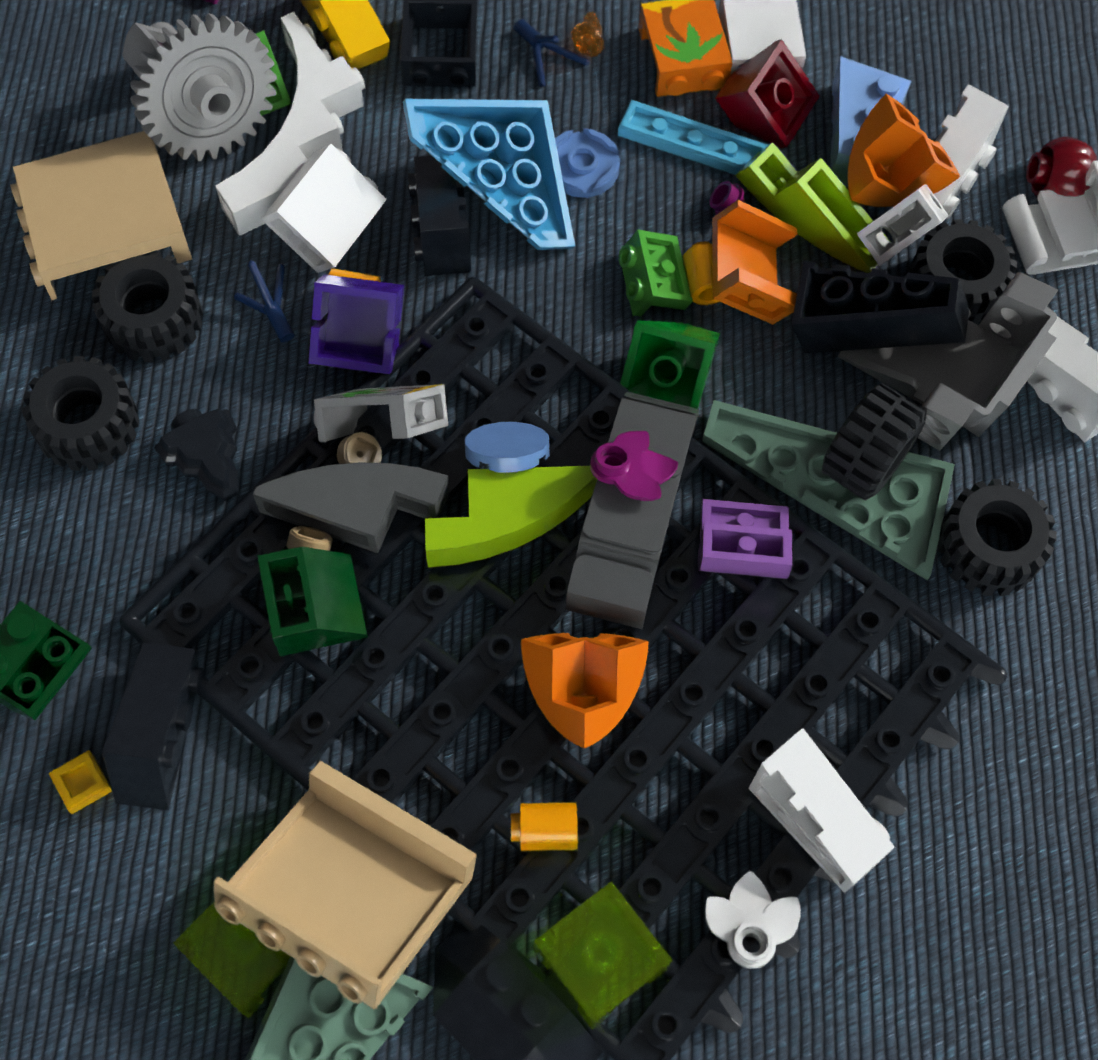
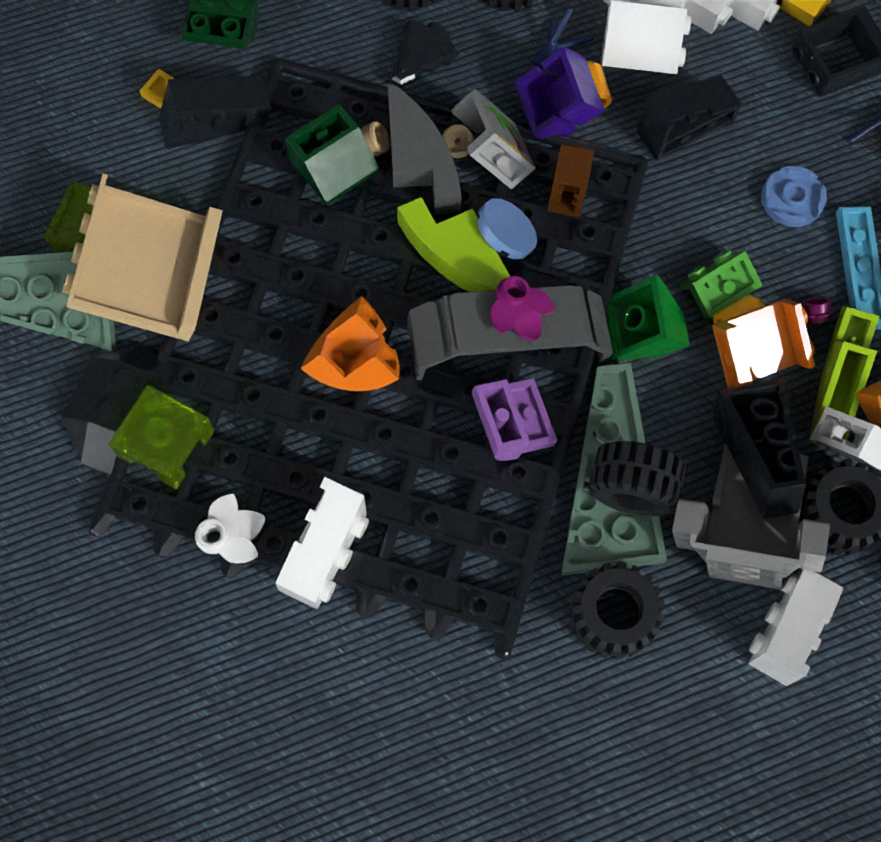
camera: 65 degrees right, 5 degrees up
(483, 352) = (570, 180): none -> reddish brown brick
(503, 156) = (751, 129): dark azure slope -> none
(545, 826) = (238, 368): light orange brick -> none

